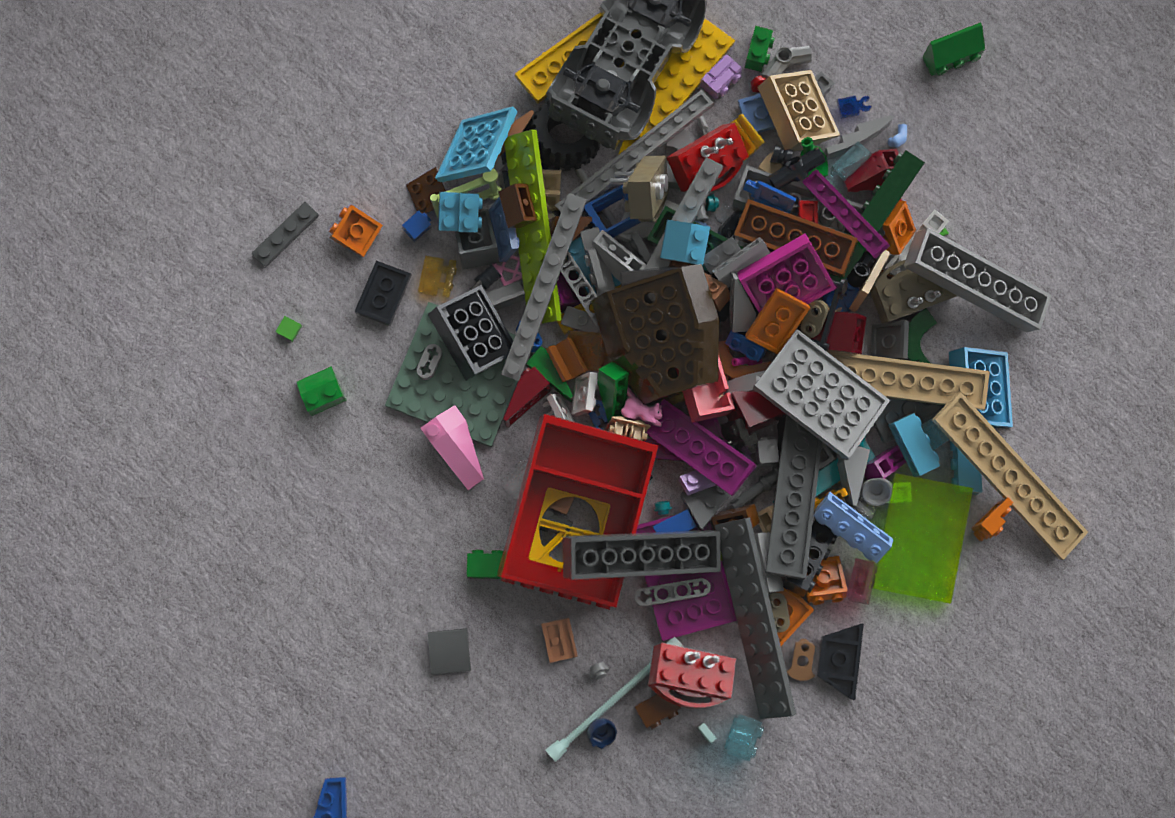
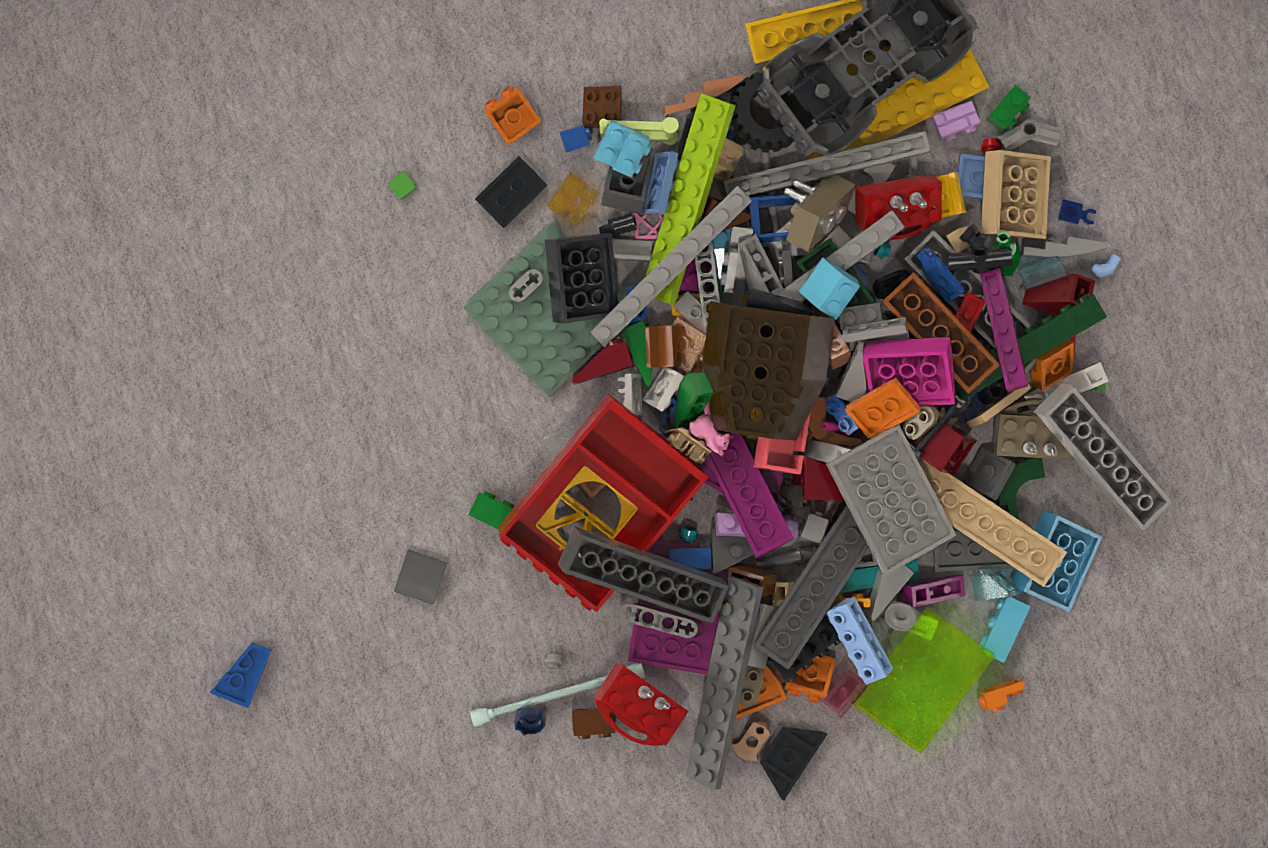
camera: 25 degrees right, 10 degrees up
(285, 234) = (440, 84): dark grey plate -> none
(321, 391) = (406, 264): green slope -> none
(453, 442) = (513, 377): bright pink wedge -> none
(476, 145) = (670, 86): medium azure plate -> none
(517, 206) = (681, 173): reddish brown brick -> none
(559, 640) = (530, 615): nougat plate -> none
(705, 731) = (629, 768): light aqua tile -> none
(743, 737) = (660, 786): clear light blue brick -> none
(914, 445) = (961, 587): medium azure brick -> none
(955, 50) = (1208, 204): green slope -> none
(1010, 475) = (1037, 660): tan plate -> none

